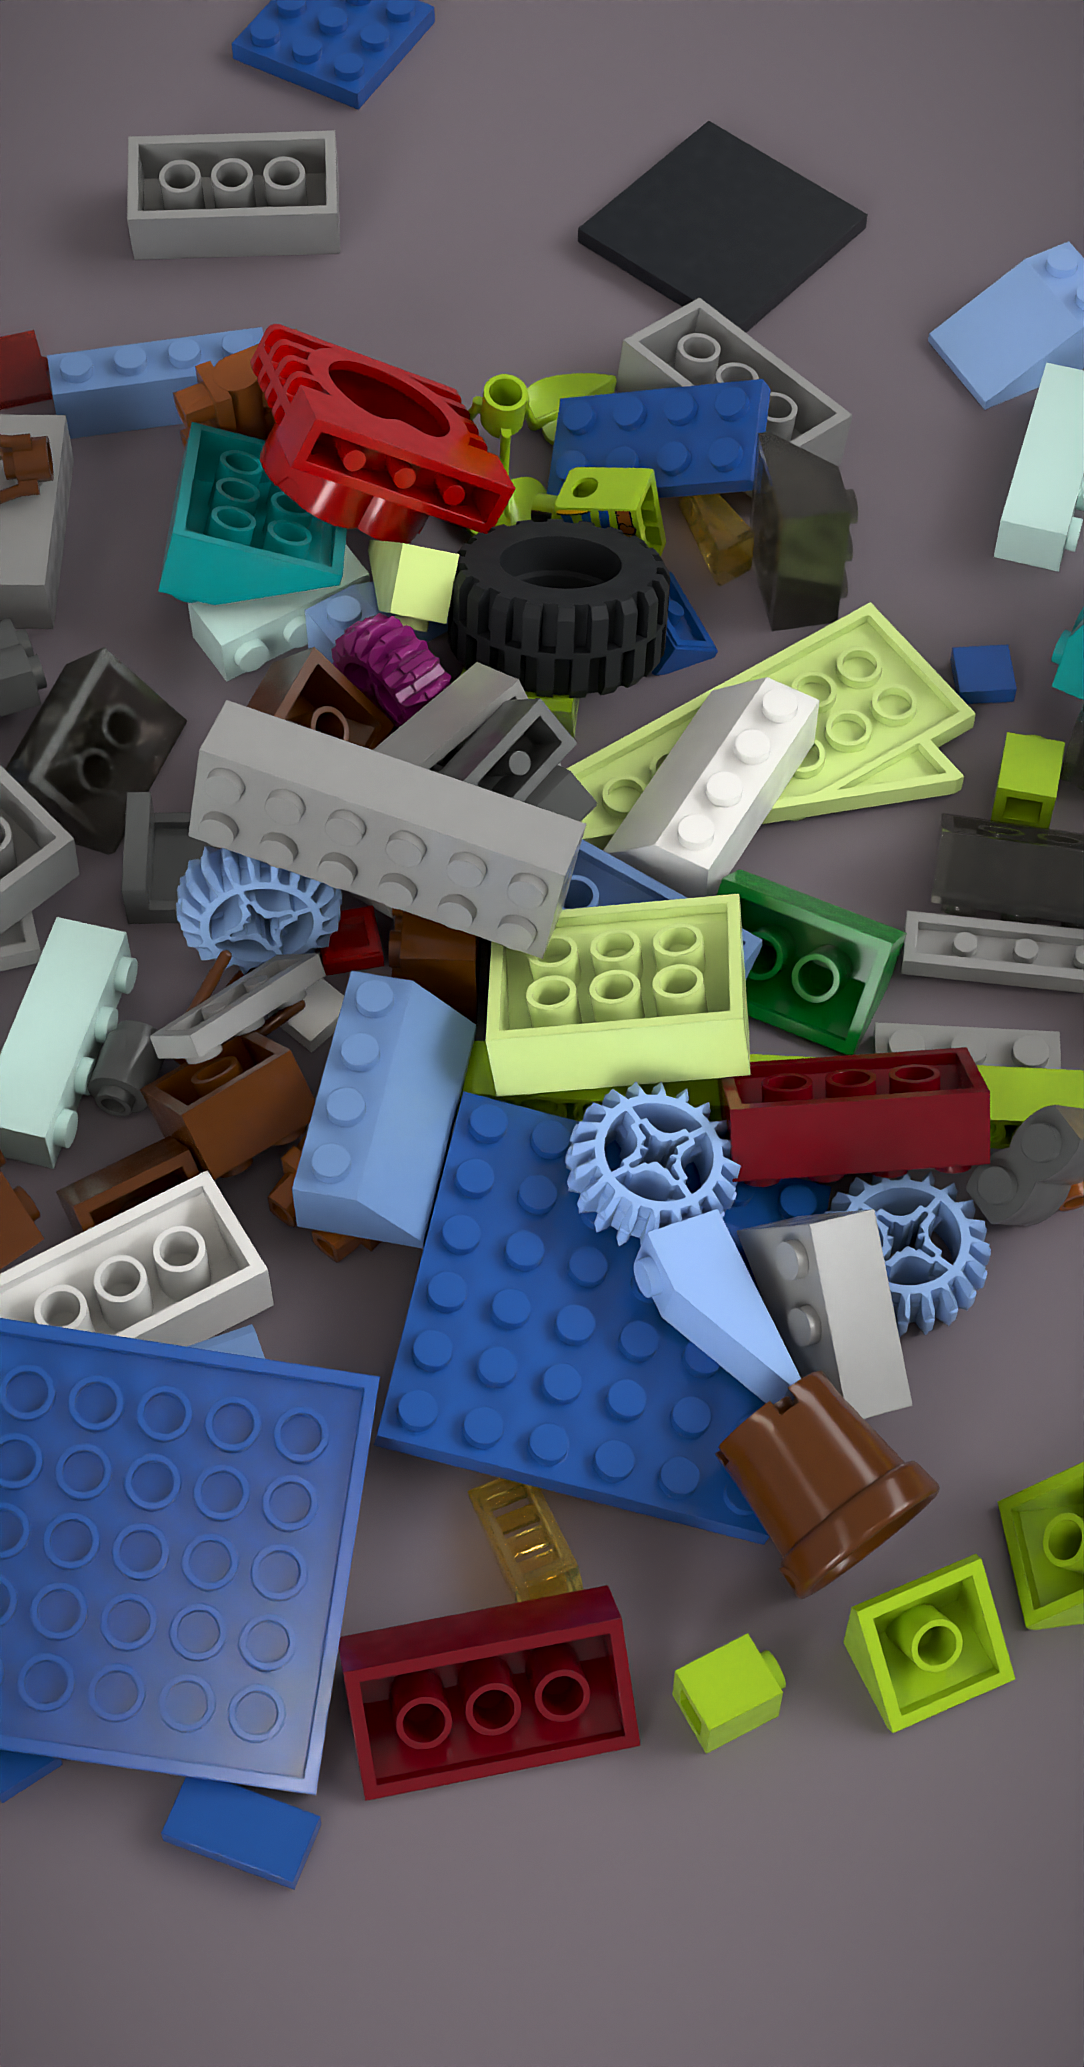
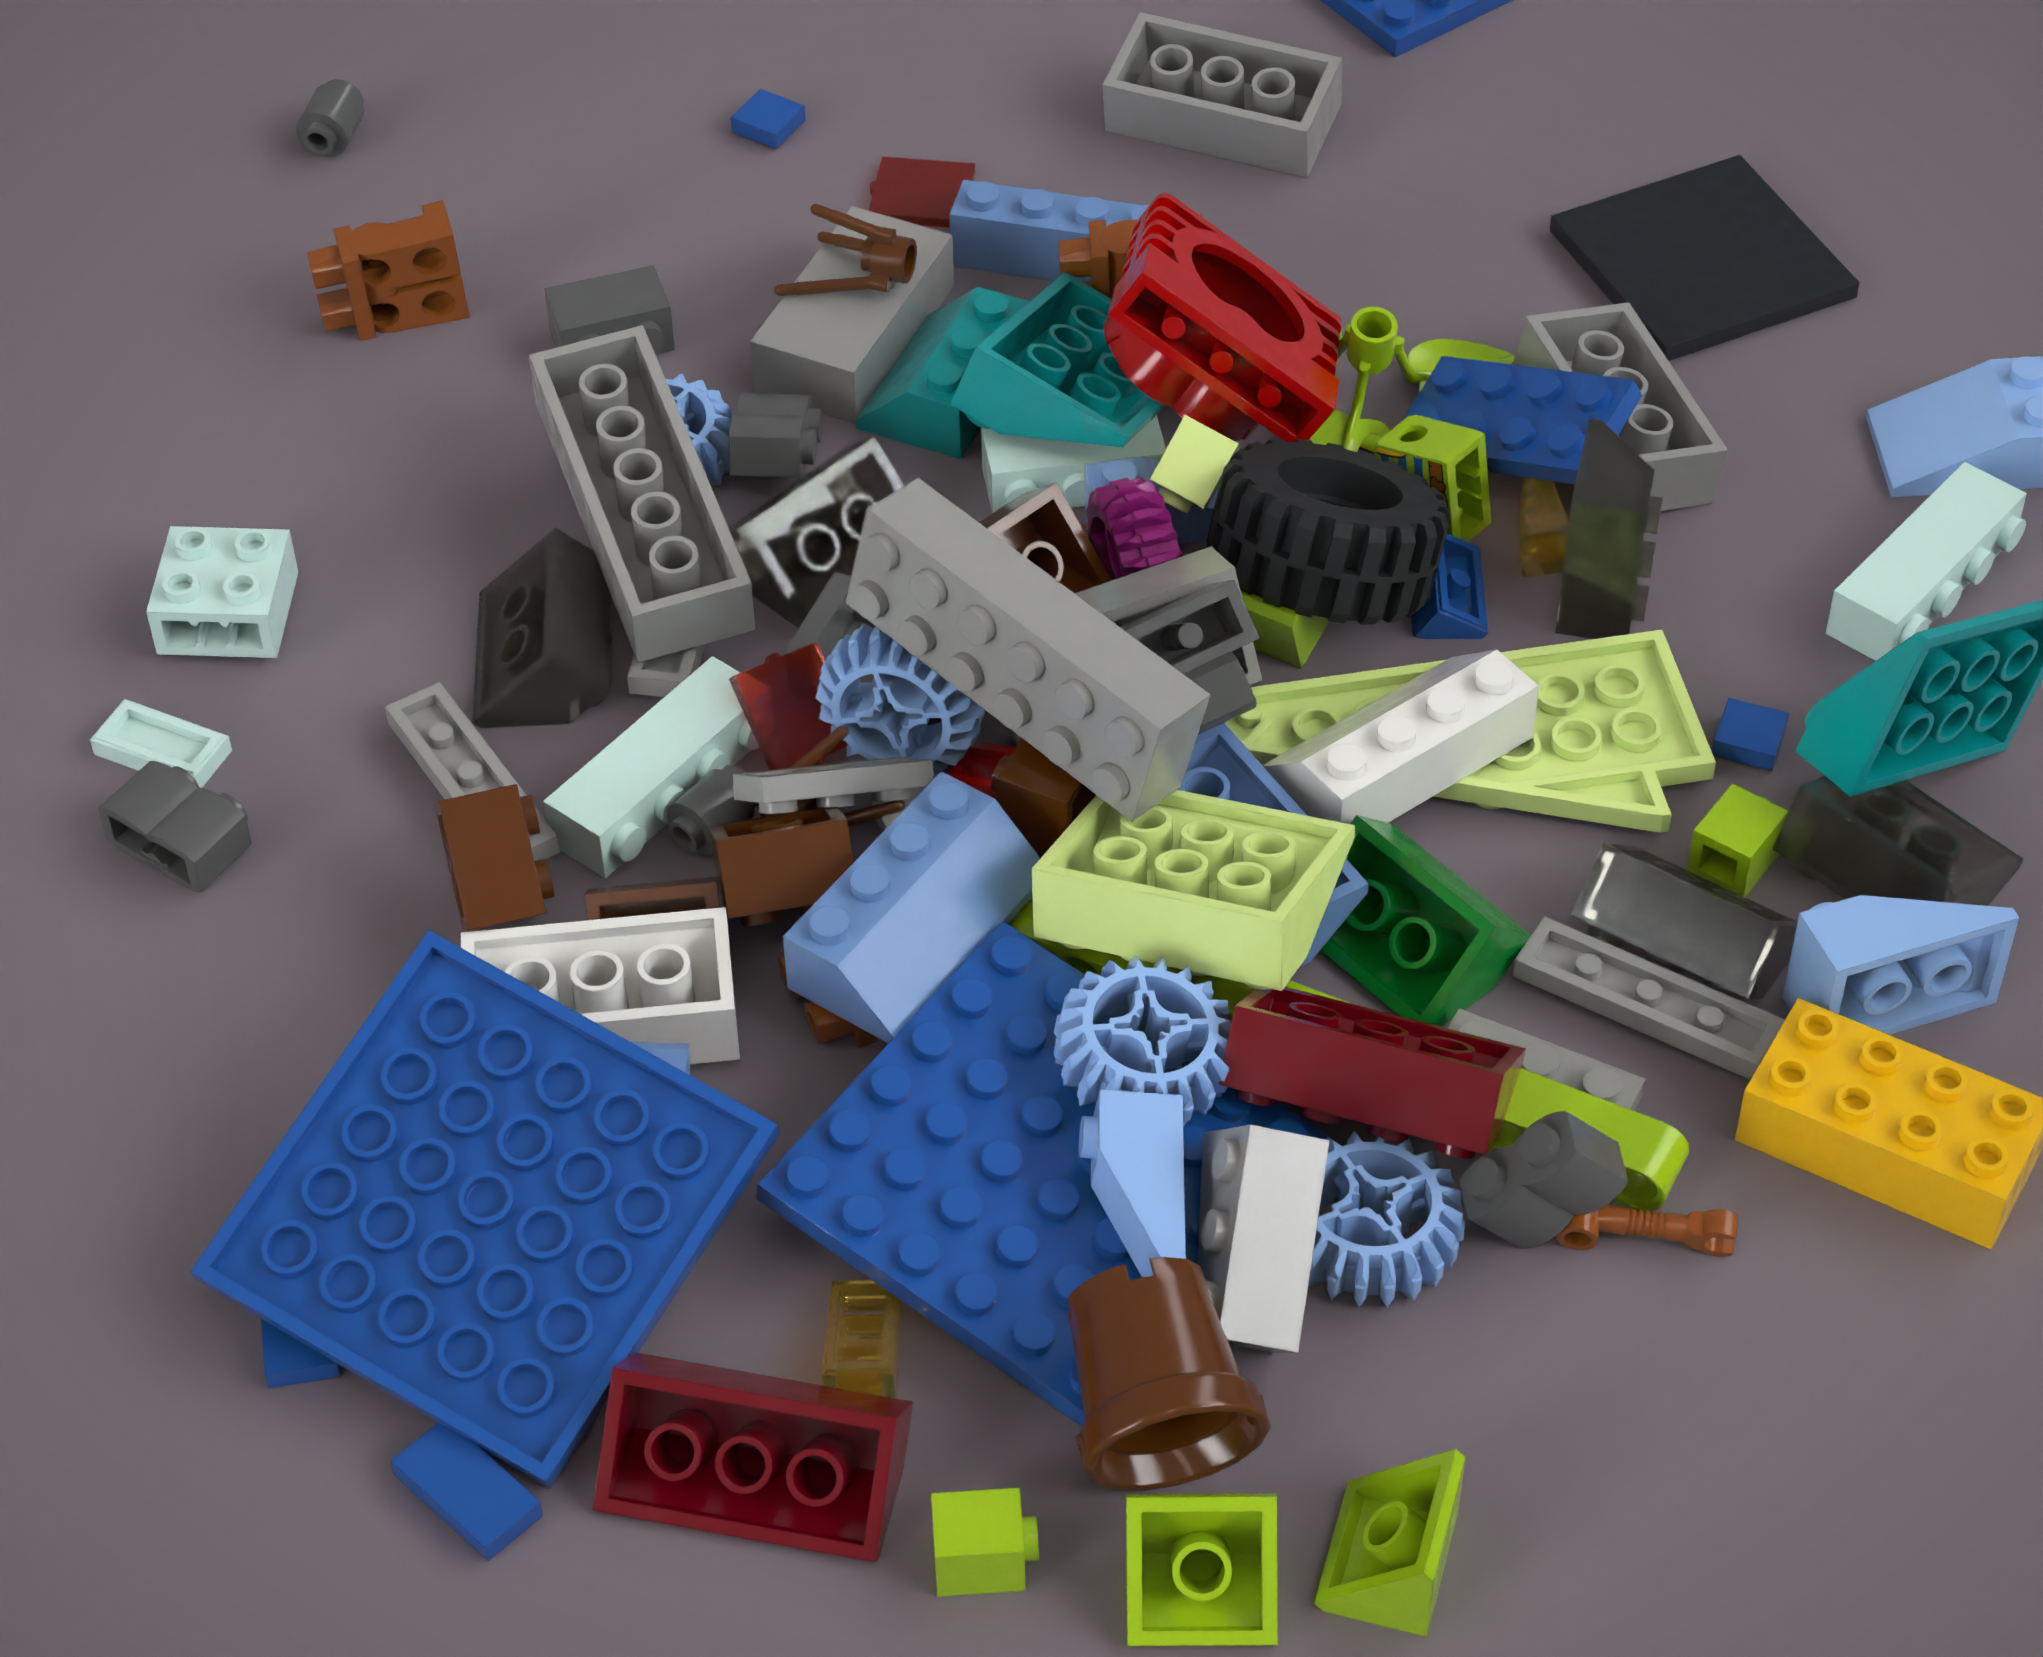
camera: 25 degrees right, 10 degrees down
(116, 551) = (918, 390): none -> teal slope
(149, 943) = (783, 705): none -> clear red piece

